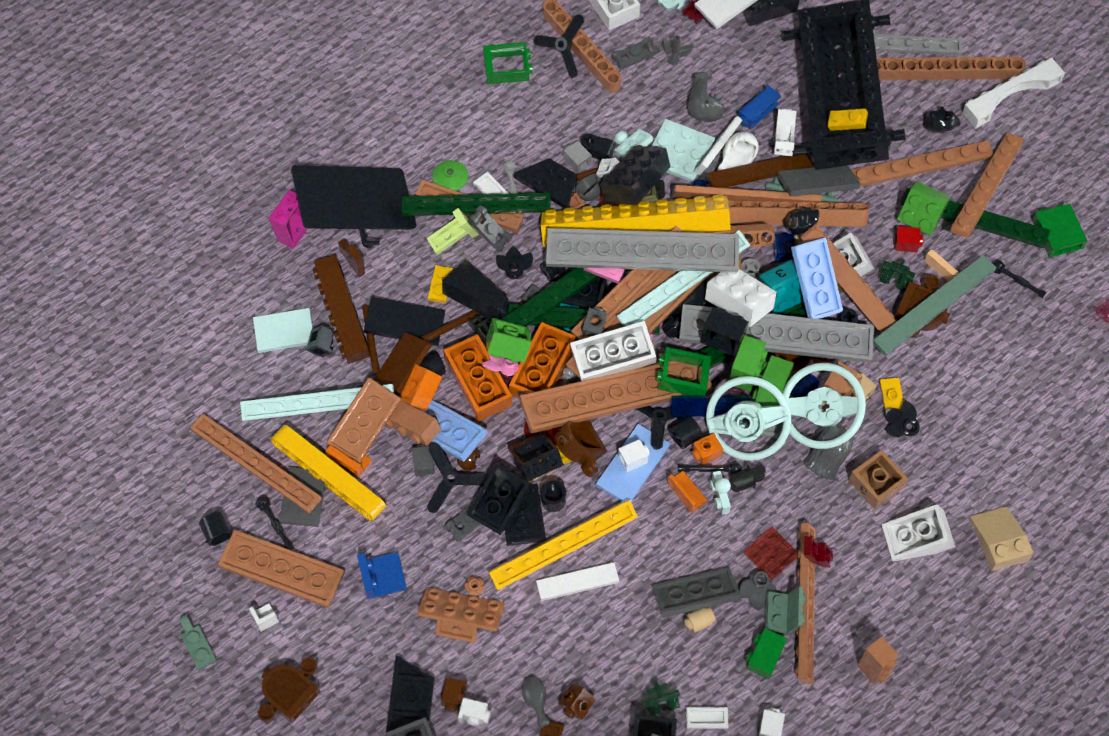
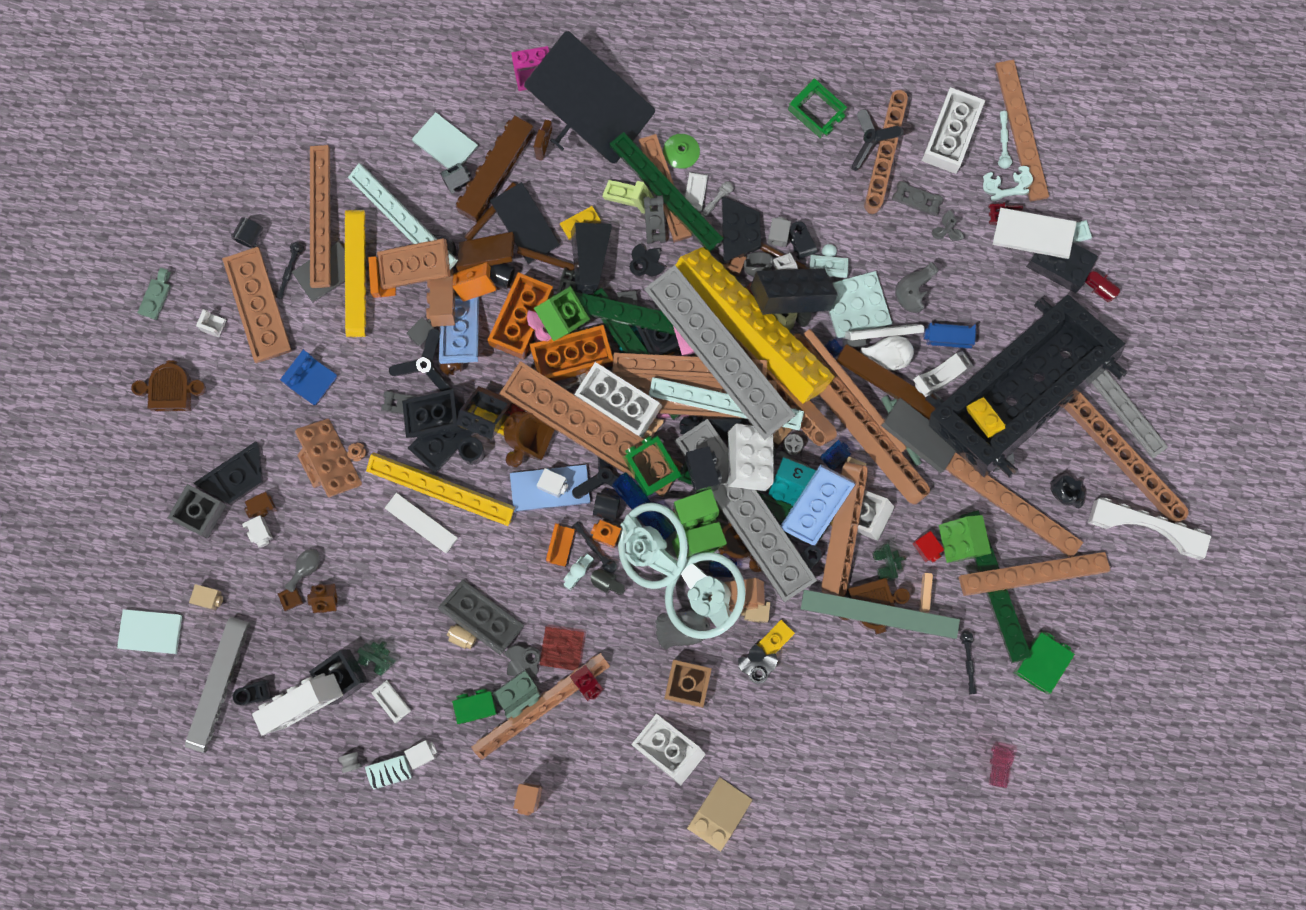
camera: 50 degrees right, 15 degrees up
(588, 328) = (623, 363): dark grey brick -> none
(801, 220) = (865, 451): black hair -> none

